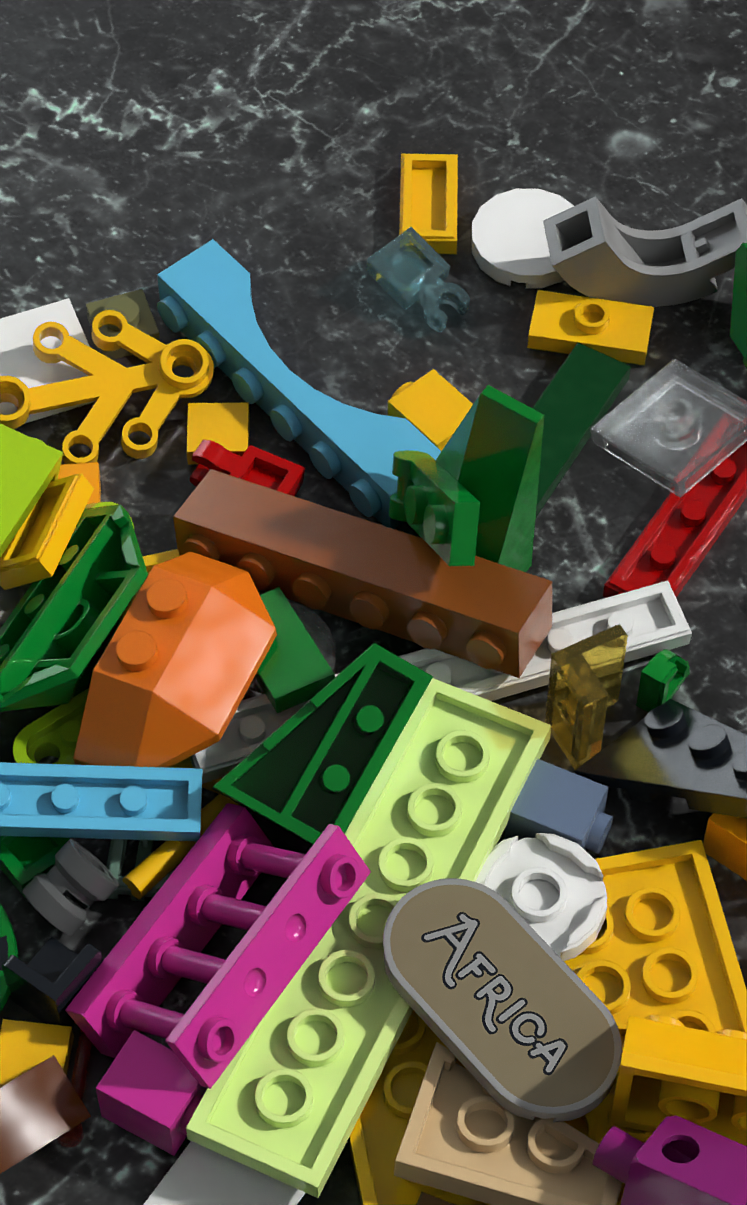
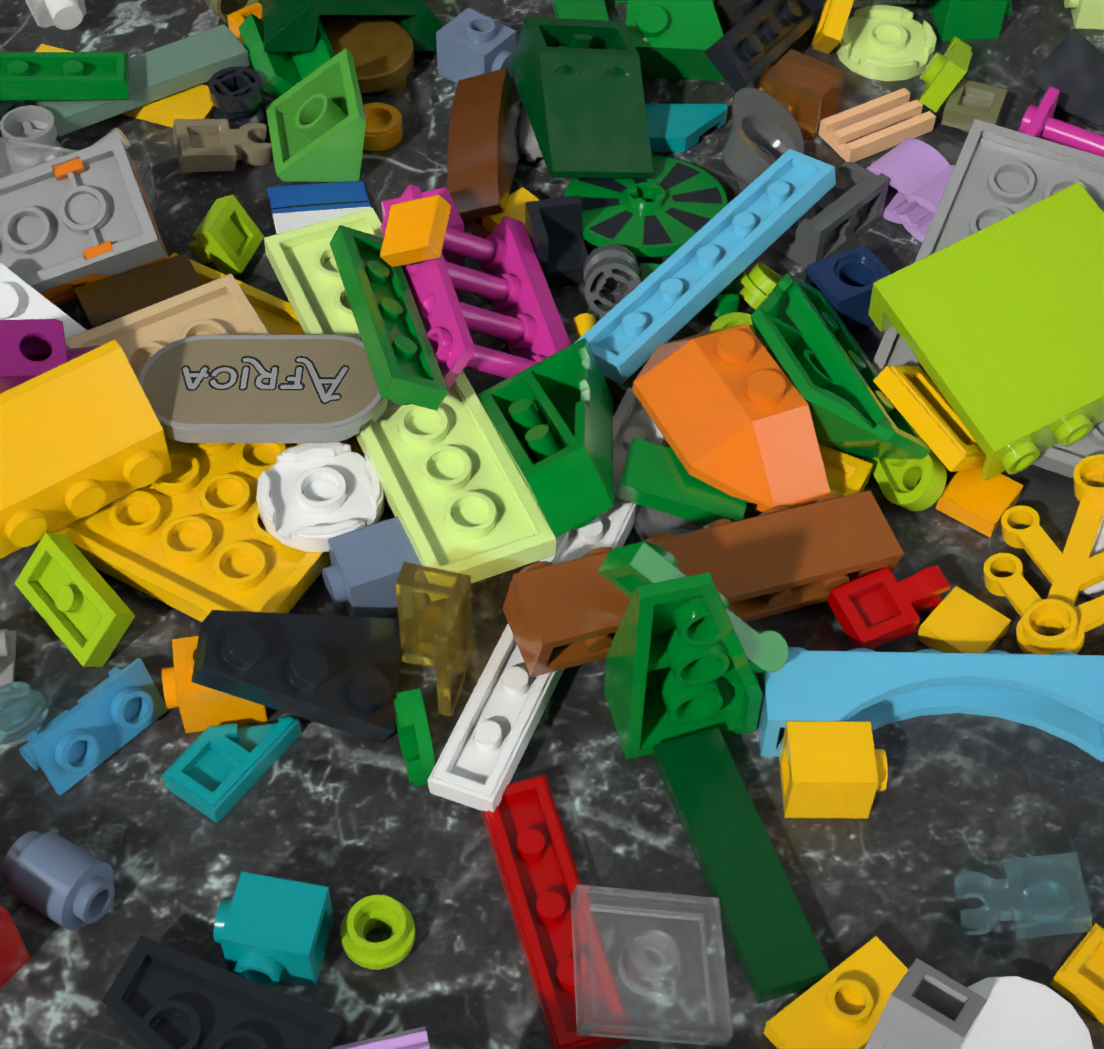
camera: 130 degrees right, 5 degrees down
(241, 971) = (415, 231): none -> light orange tile
(343, 943) = (388, 322): none -> green plate

